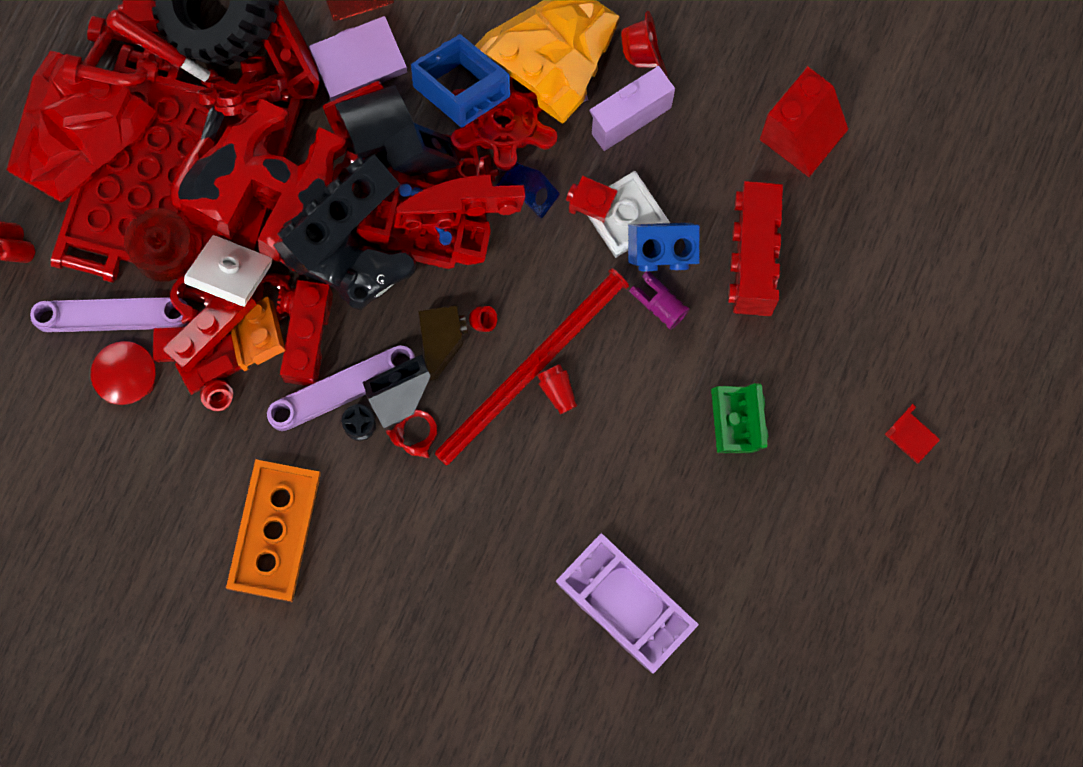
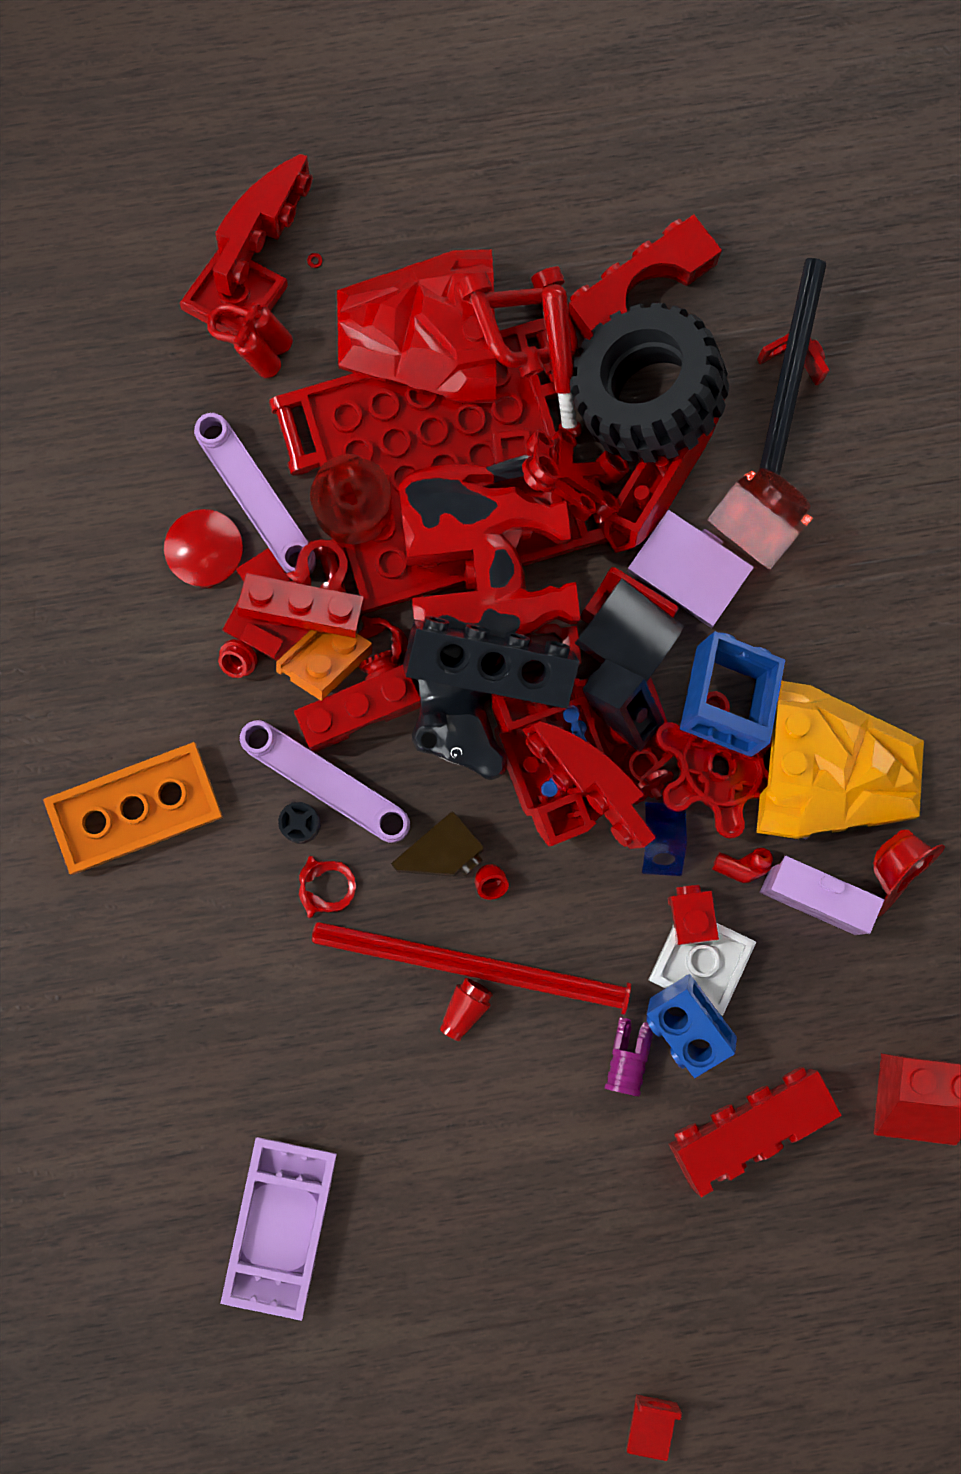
camera: 55 degrees right, 5 degrees up
(228, 270) = (369, 586): white plate -> none
(397, 390) = (354, 843): slope -> none
(582, 148) = (745, 869): none -> red arm
(739, 418) = (552, 1226): green bracket -> none

